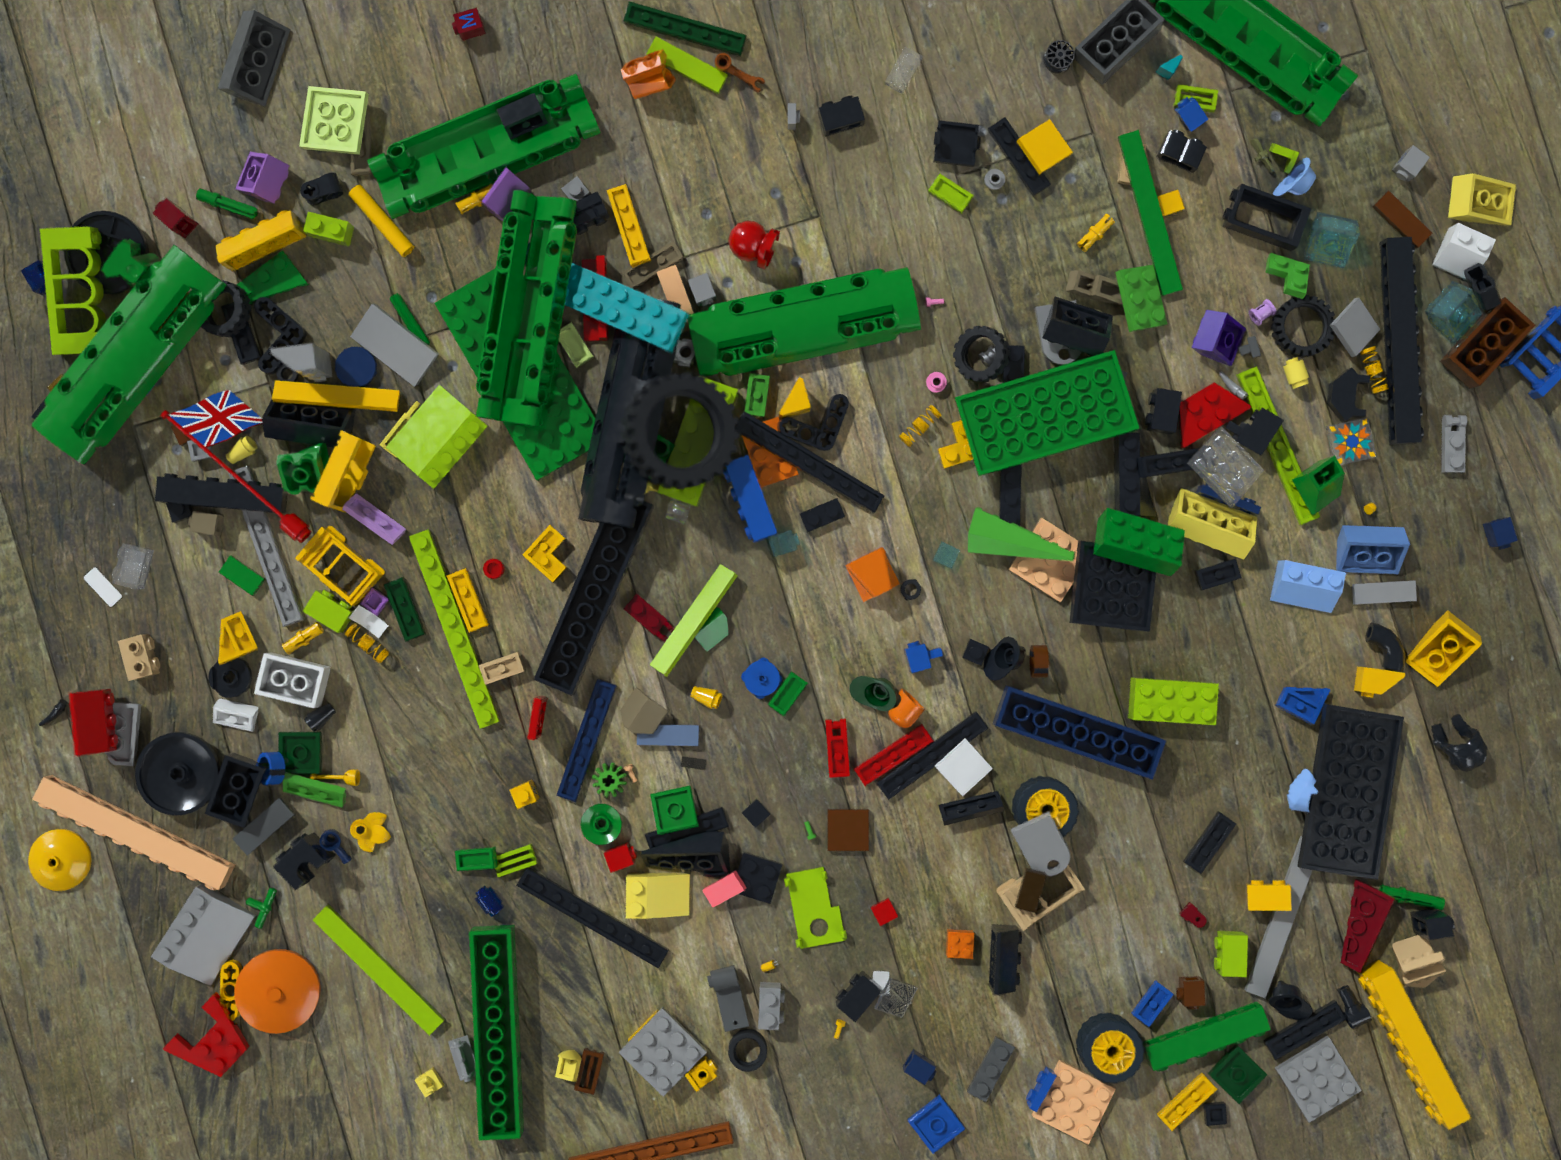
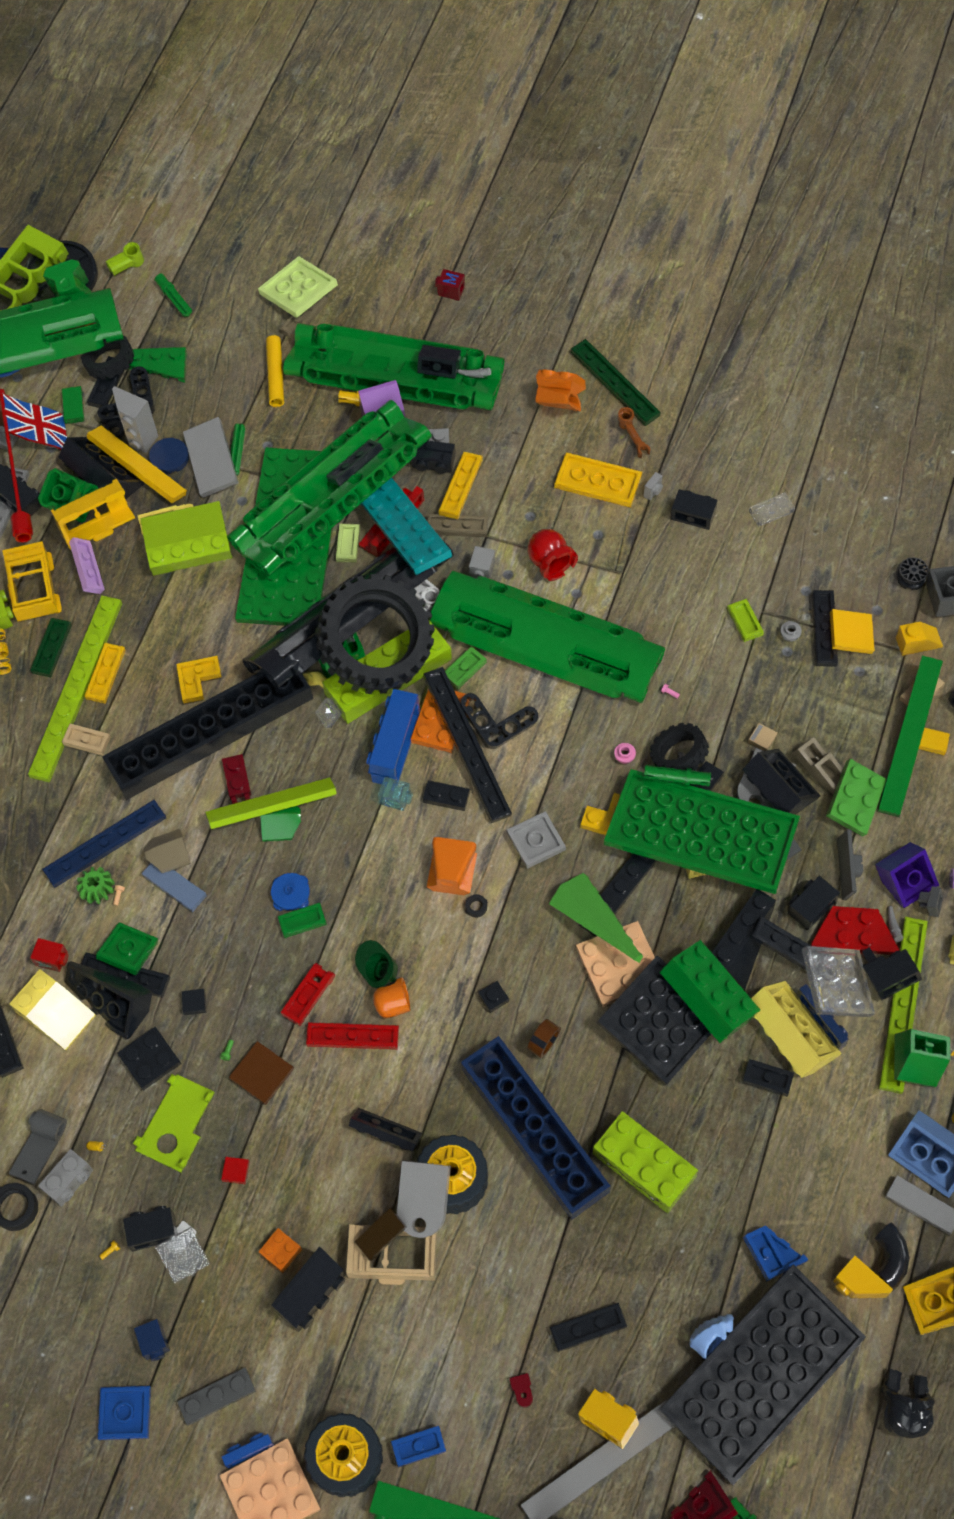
camera: 45 degrees right, 25 degrees down
(150, 197) = (128, 258): none -> lime piece
(175, 218) = (127, 278): dark red brick -> none
(230, 375) = (73, 404): none -> green tile
(242, 449) = (34, 457): light yellow cone -> none
(254, 58) = (276, 218): dark grey slope -> none
(260, 240) = (174, 330): yellow slope -> none
(262, 177) = (215, 293): medium lavender slope -> none
(324, 189) = (250, 325): black piece -> none
(328, 229) = (231, 352): lime brick -> none
(368, 621) = (16, 635): white sticker -> none
(374, 601) = (33, 626): medium lavender tile -> none
(493, 568) = (145, 663): red tile -> none
(524, 794) = (17, 848): yellow brick -> none
(530, 272) = (354, 462): none -> black tile
(537, 717) = (79, 791): red tile -> none
(564, 103) = (478, 373): none -> light grey helmet
(596, 833) = (53, 908): green dish -> none
(675, 290) = (460, 543): light nougat slope -> none
(690, 66) = (599, 409): lime tile -> none
(693, 763) = (176, 924): clear smoke piece -> none
(709, 697) = (232, 874): yellow cone -> none
(724, 889) = (112, 1044): coral tile -> none
(739, 139) = (598, 479): none -> yellow tile
(797, 401) = (491, 686): yellow slope -> none
(918, 656) = (439, 965): blue brick -> none
(919, 424) = (585, 777): yellow piece -> none
(919, 504) = (536, 840): none -> light grey plate
(930, 755) = (387, 1060): black tile -> none
(946, 555) = (529, 898): clear light blue tile -> none
(956, 143) = (776, 584): black piece -> none
(963, 767) = (406, 1088): white tile -> none
(998, 380) = (677, 775): none -> green pin
(1003, 658) = (517, 1016): black piece -> none
(1034, 293) = (762, 737): none -> tan tile
(1095, 233) = (851, 723): yellow pin -> none
(1101, 117) = (917, 638): none -> yellow slope
(1171, 361) = (849, 865): none -> dark grey piece
(1191, 992) = (464, 1462): reddish brown brick -> none
(1231, 954) = (532, 1452): lime brick -> none
(1307, 586) = (848, 1144): light blue slope -> none

